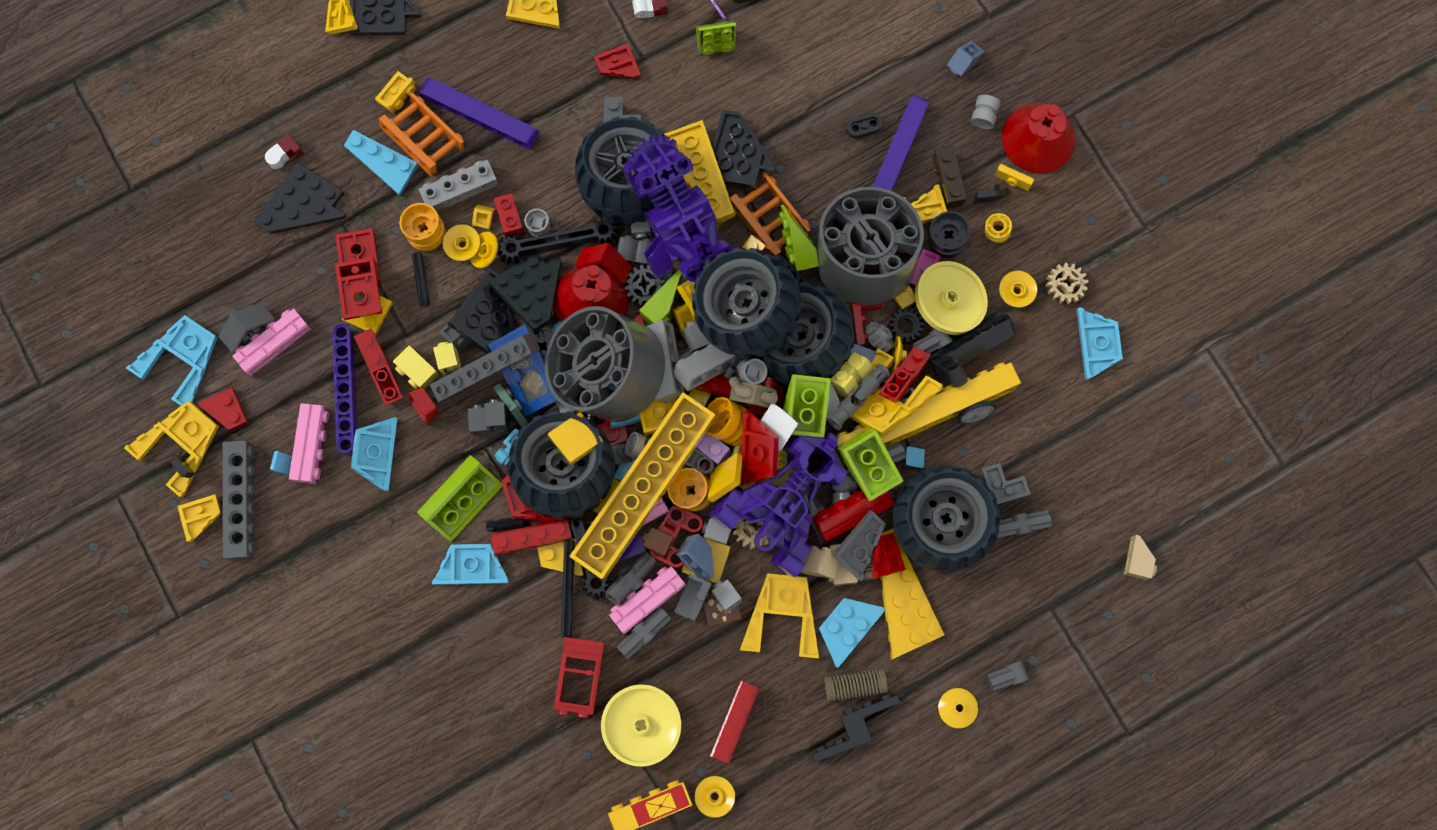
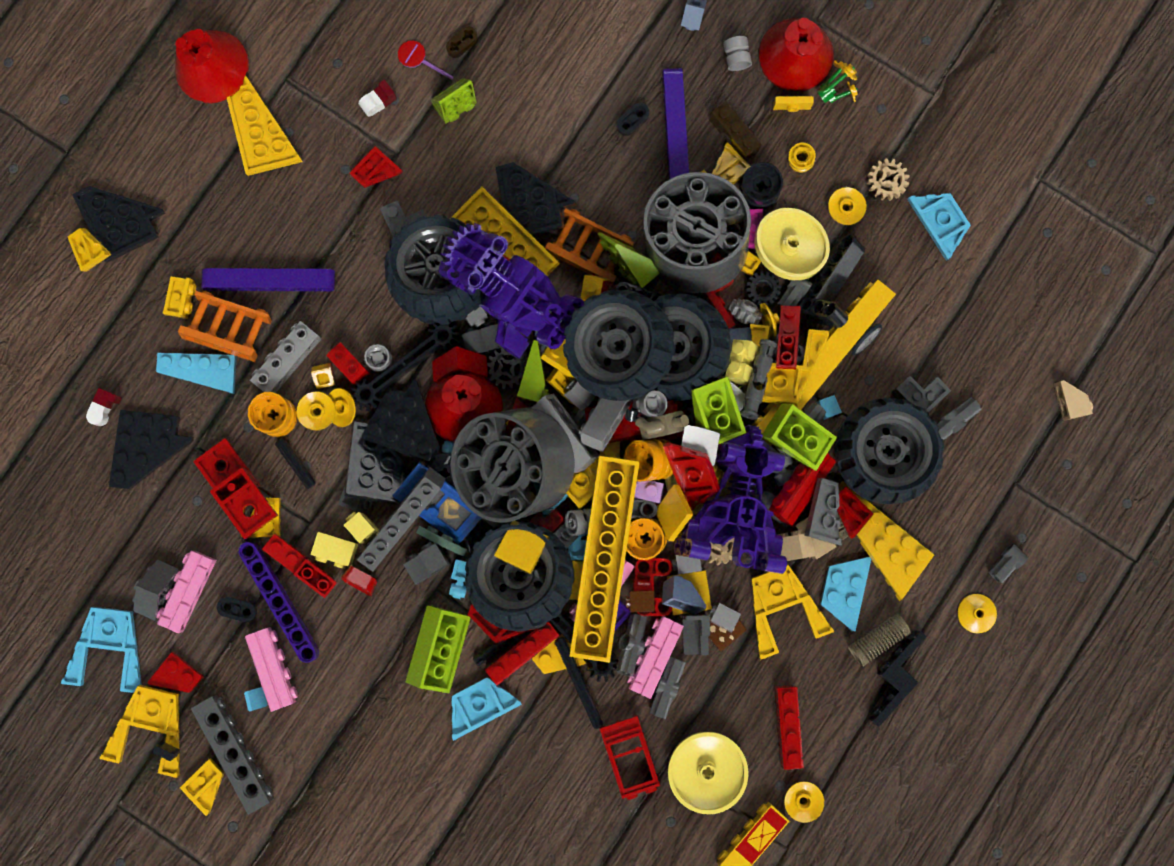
camera: 30 degrees left, 5 degrees up
(306, 379) = (237, 609): none -> black plate
(374, 452) = (336, 646): medium azure wing -> none
(986, 196) = (784, 125): black slope -> none
(1050, 181) = (827, 91): none -> green plant

